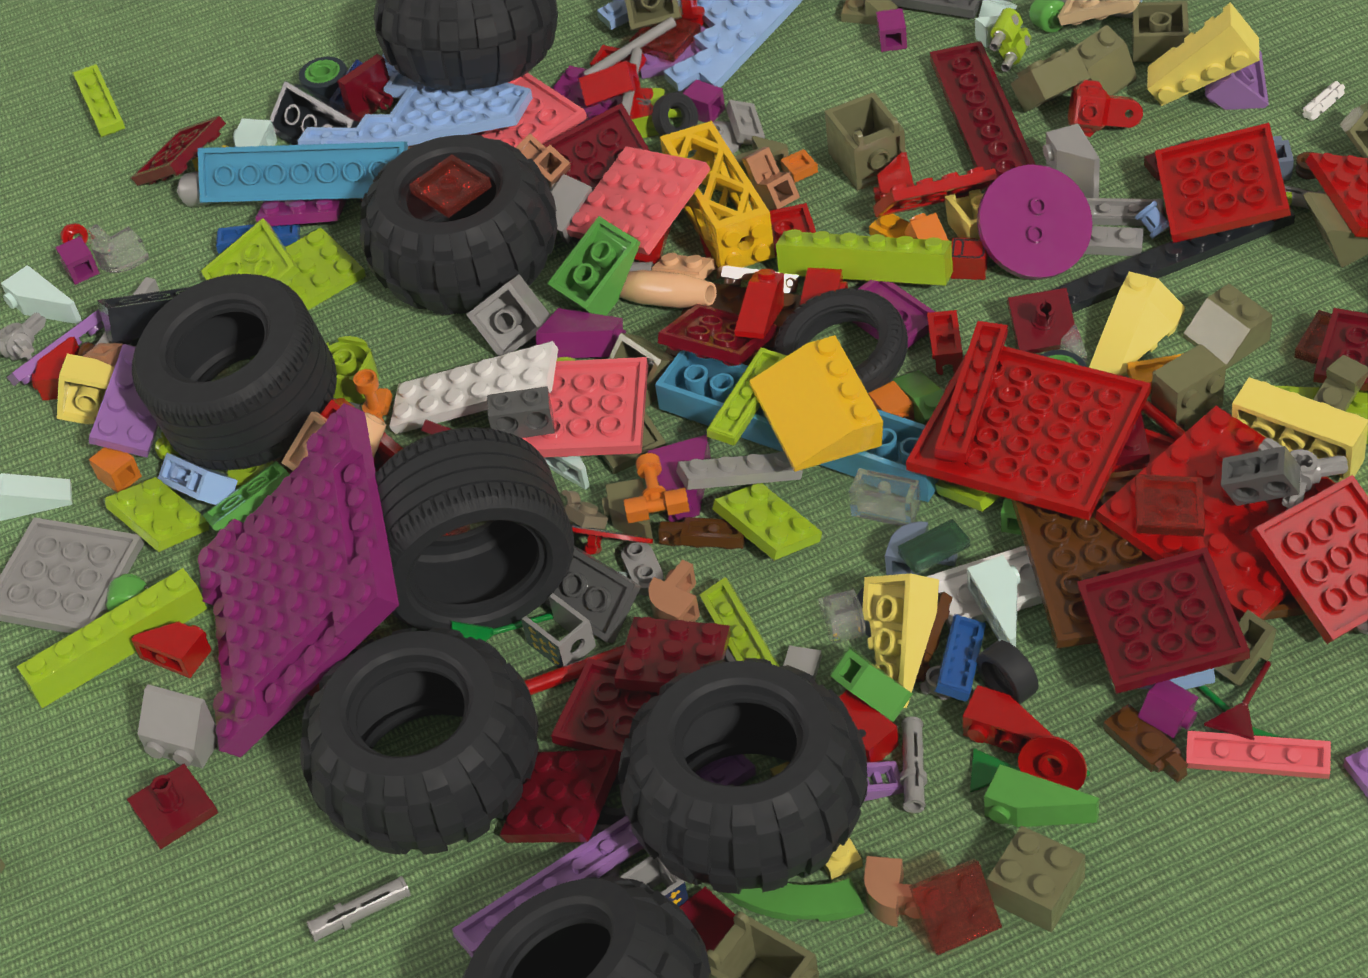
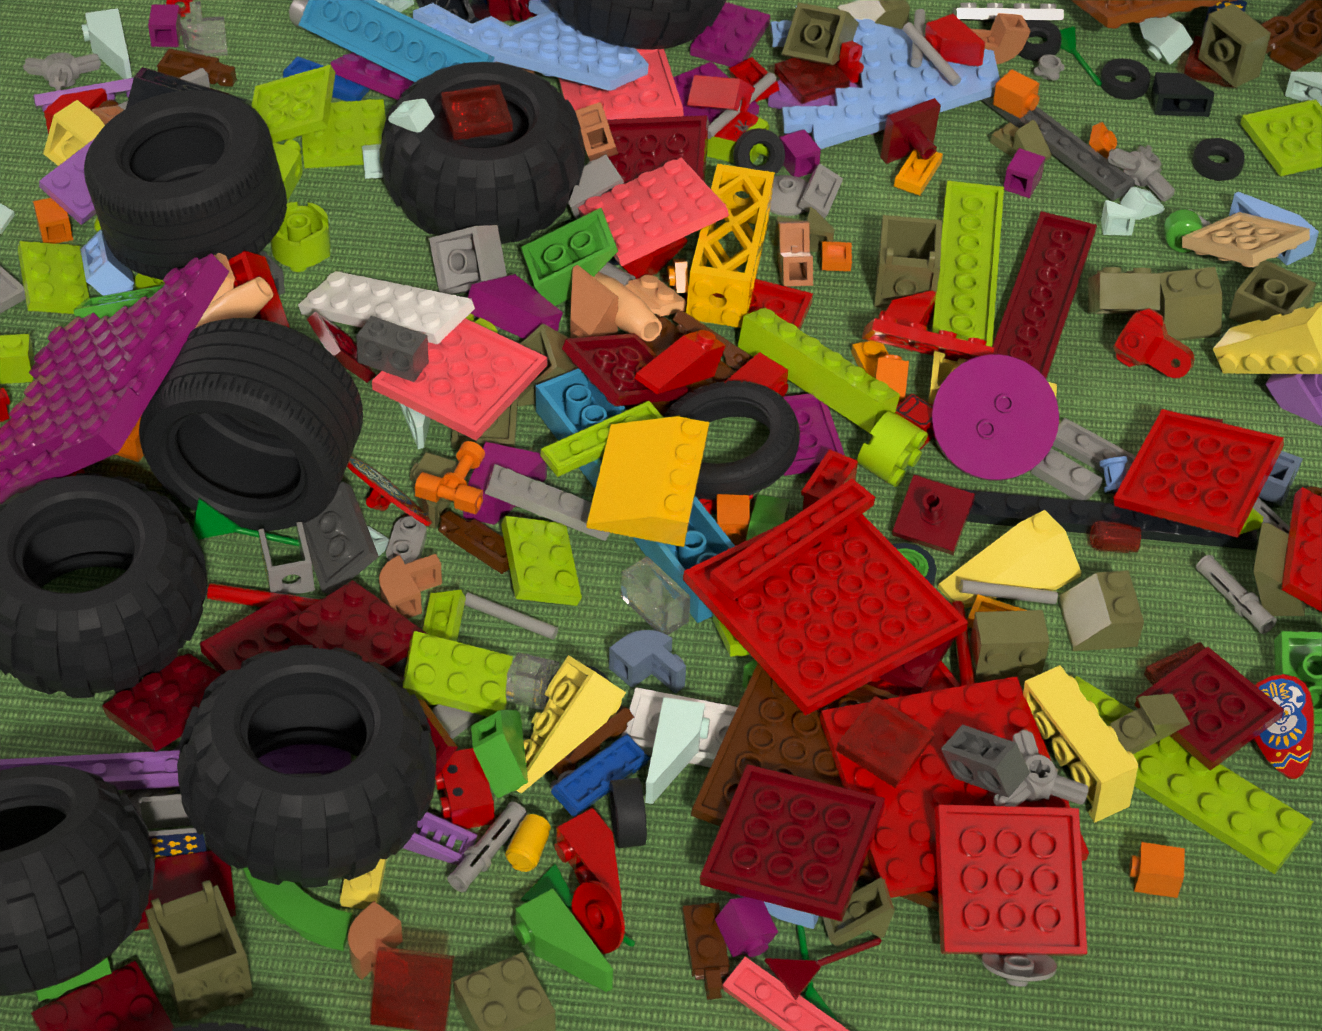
camera: 20 degrees right, 0 degrees up
(127, 281) = (181, 63): none -> reddish brown hinge
(358, 278) = (371, 161): none -> light aqua slope
(377, 399) = (295, 280): orange bar -> none
(395, 215) = (412, 115): none -> light aqua slope
(572, 40) = (731, 35): none -> magenta plate
(583, 513) = (392, 468): dark tan plate -> none
(627, 49) = (777, 70): light grey bar -> none
(644, 303) = (592, 307): none -> nougat slope
(693, 240) = (678, 275): none -> light orange plate
(777, 577) = (511, 616): none -> light grey bar
(783, 40) = (911, 130): none -> dark red tile
(784, 639) = (456, 674): none -> lime plate
(807, 68) = (917, 172): none -> light orange plate
(928, 143) = (969, 260): none -> lime plate
(933, 546) = (656, 662): clear green tile -> none
(943, 743) = (528, 843): none -> yellow piece
(973, 286) = (892, 448): none -> lime brick
(1011, 36) = (1125, 234): lime piece -> none
(1073, 343) = (941, 549): clear slope -> none
(1074, 156) = (1078, 379): light grey slope -> none
(1146, 349) = (1008, 592): none -> light grey bar
(1190, 266) = (1115, 537): none -> clear red piece
(1323, 264) = (1245, 603): none -> light grey pin

